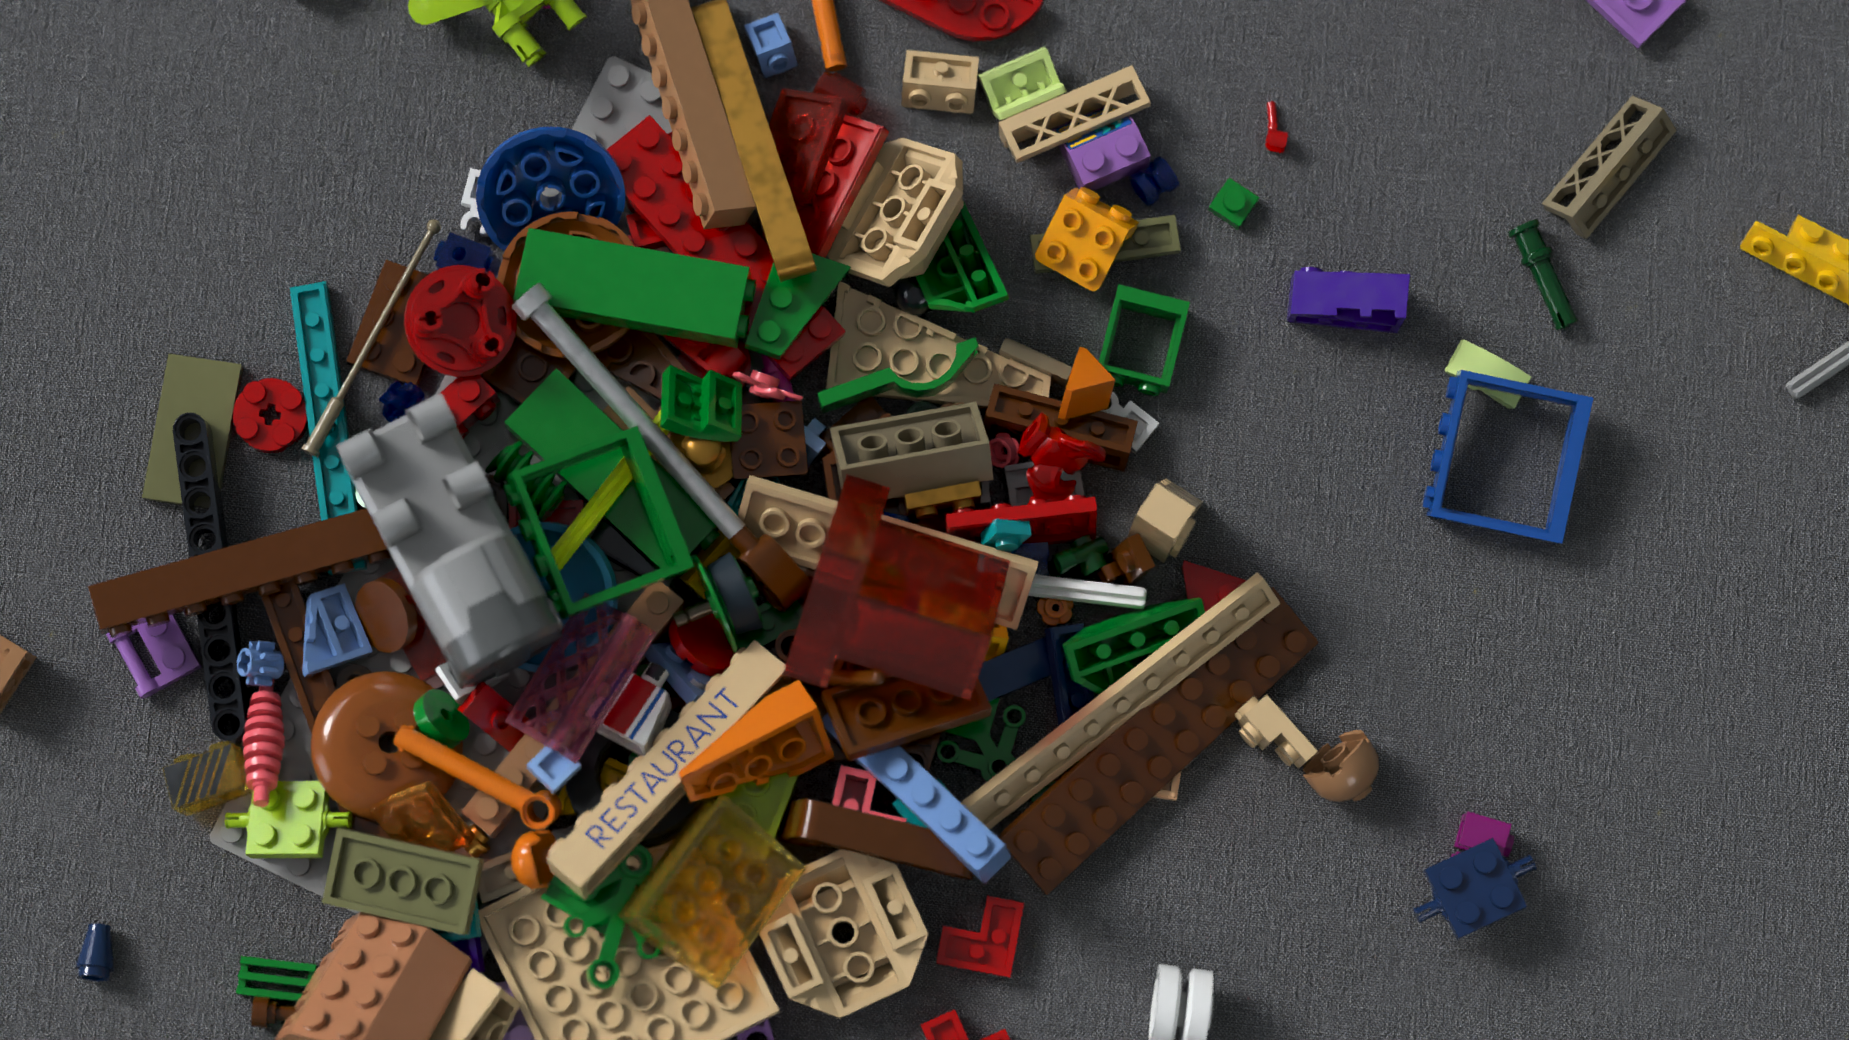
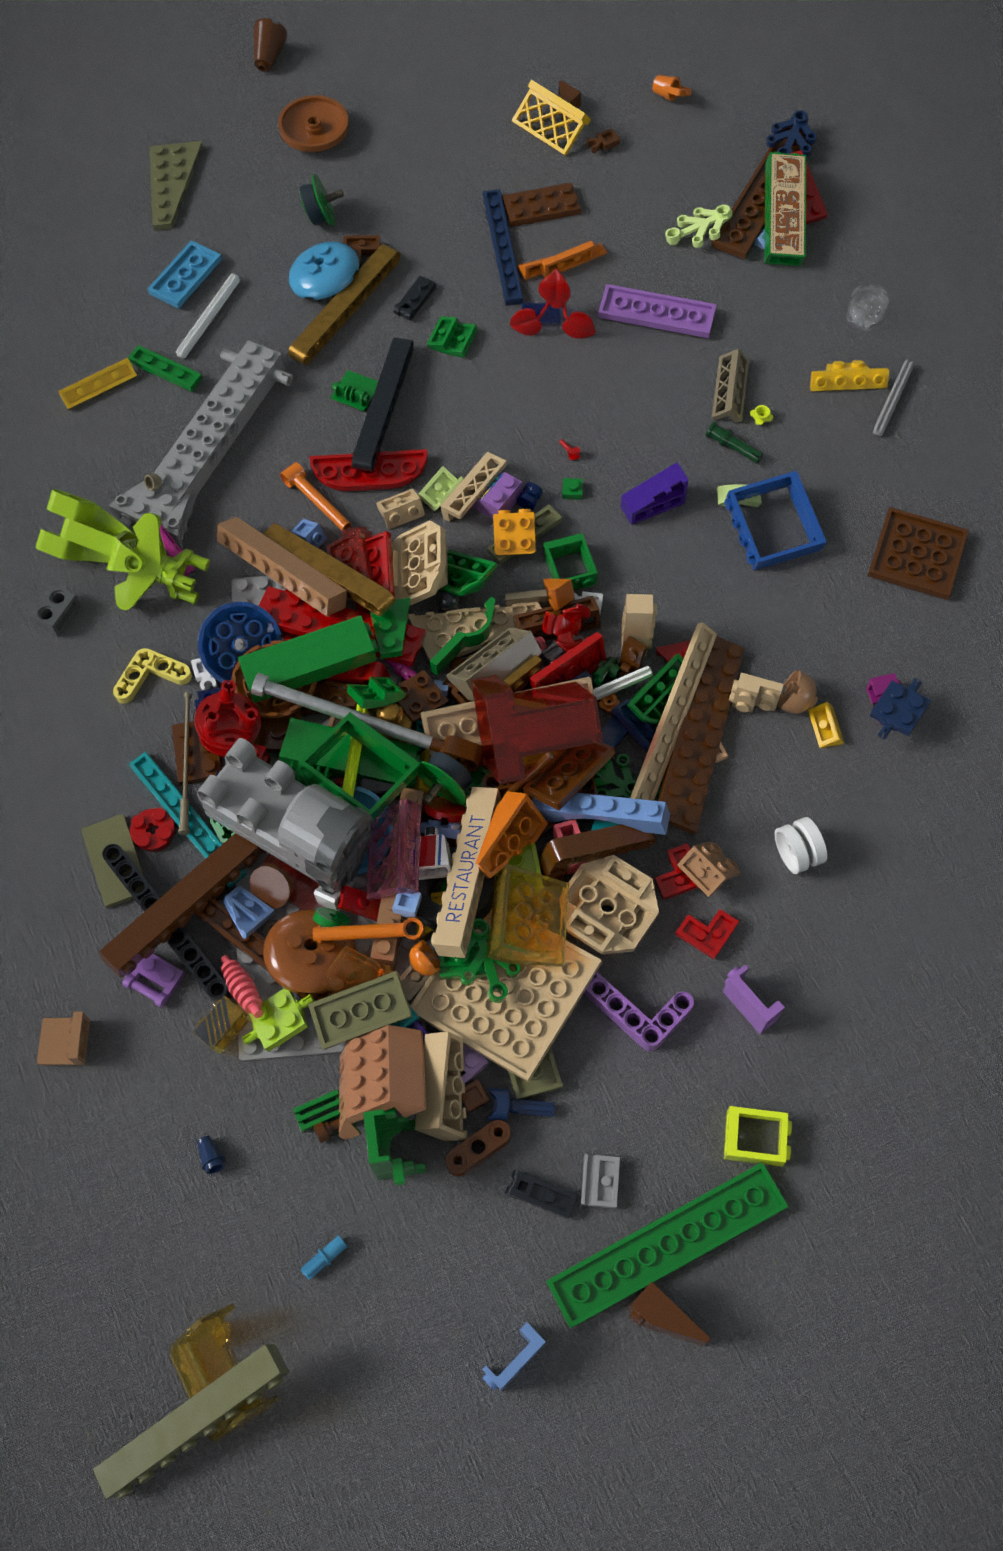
camera: 25 degrees left, 15 degrees down
(260, 663) = (217, 948): medium blue gear -> none
(408, 137) = (149, 666): none -> light yellow beam
(765, 386) = (402, 672): coral plate -> none
(1005, 534) = (564, 672): teal plate -> none
(1030, 959) = (708, 867): none -> medium nougat bracket
(1358, 840) = (826, 725): none -> yellow slope
(1632, 240) = (761, 414): none -> neon yellow plate
(1701, 642) = (918, 553): none -> reddish brown plate

